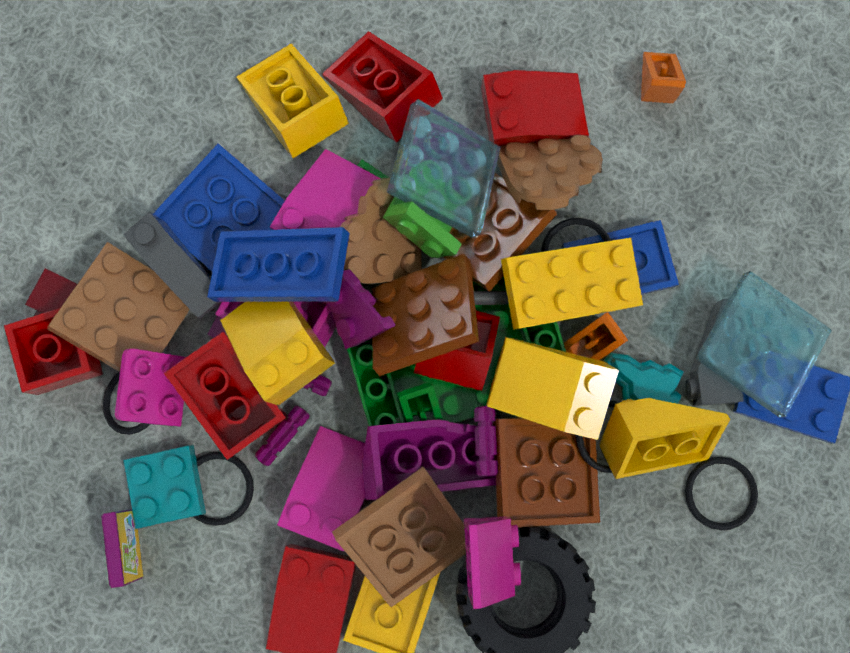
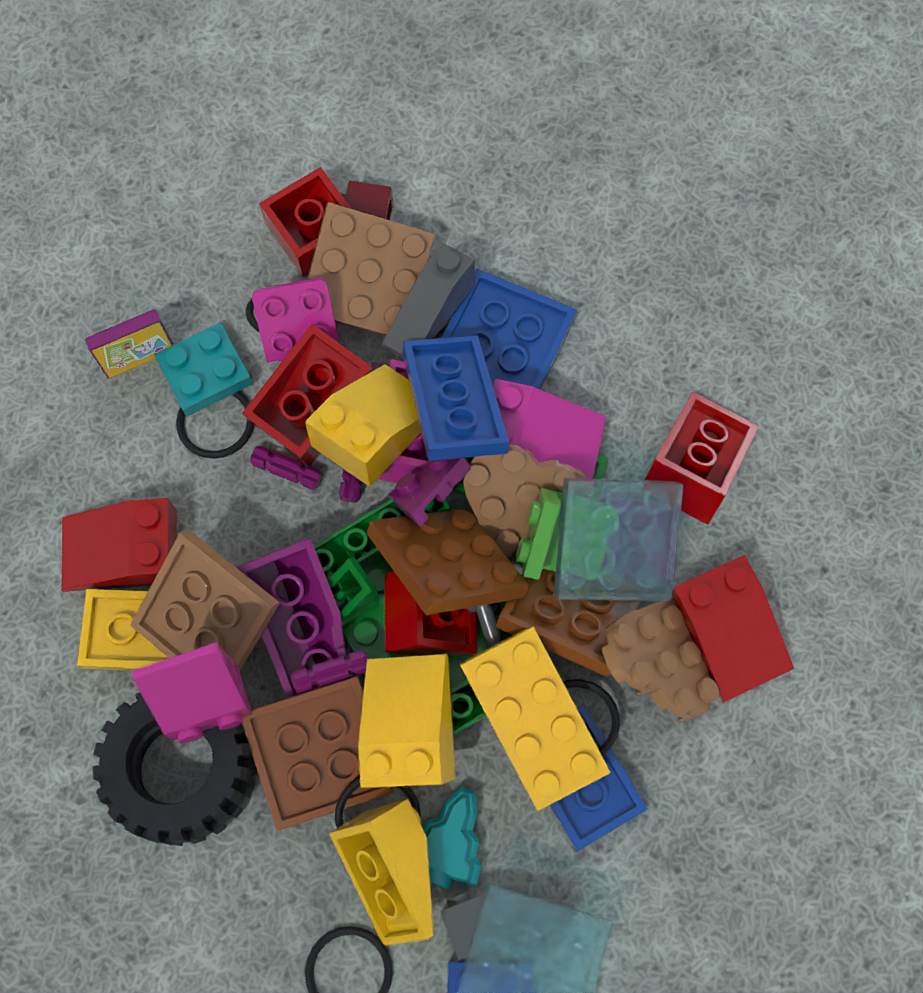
camera: 80 degrees right, 10 degrees down
(293, 100) = (649, 369): yellow slope -> none
(326, 488) = (242, 522): dark pink slope -> none
(597, 339) = (480, 768): orange slope -> none
(661, 78) = (823, 764): orange slope -> none

